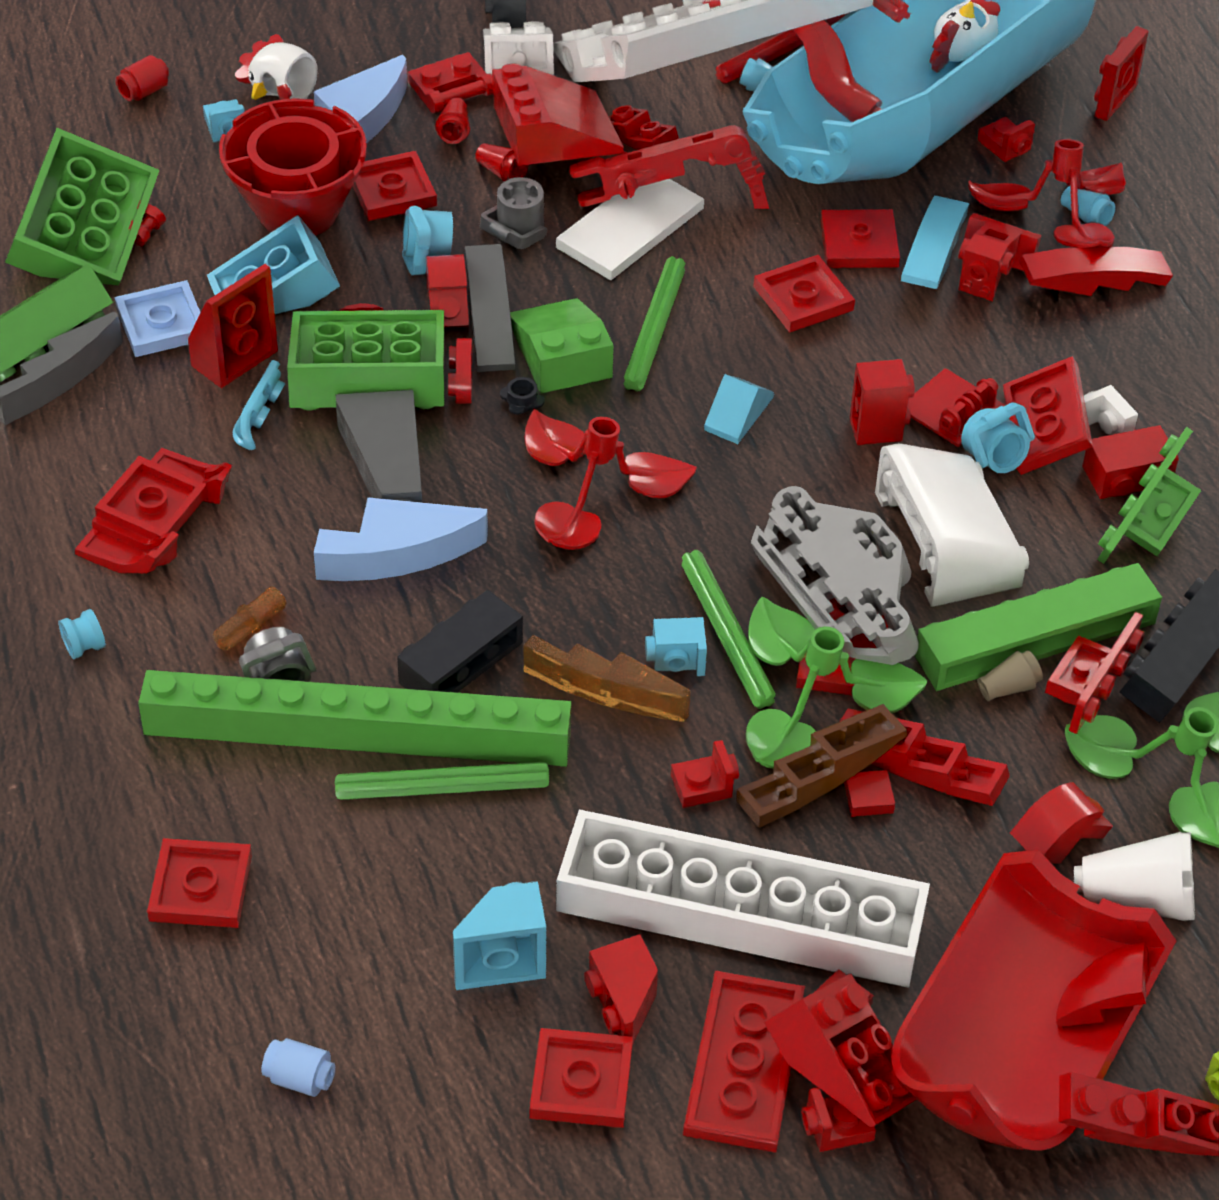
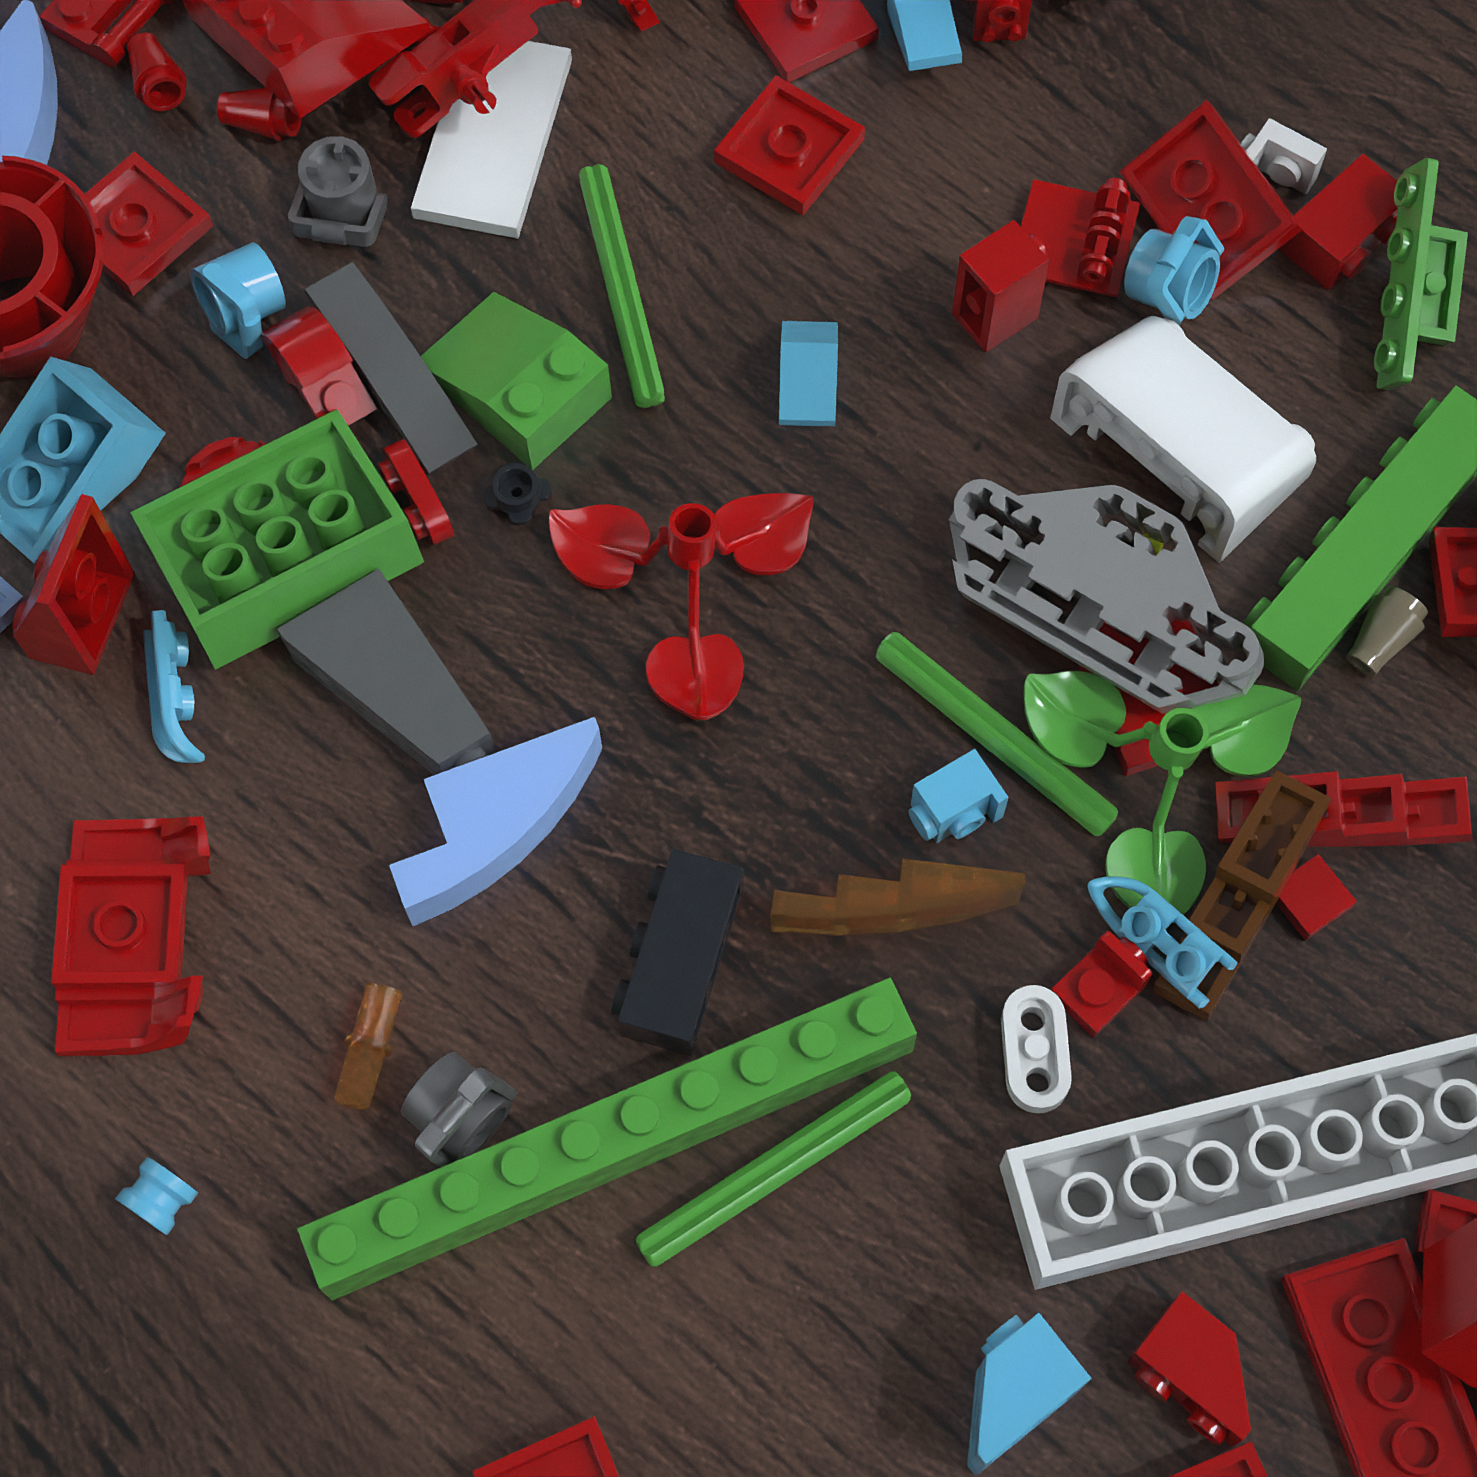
camera: 25 degrees left, 20 degrees up
(638, 793) = (1036, 1051): none -> white plate
(747, 751) = (1147, 927): none -> medium azure piece

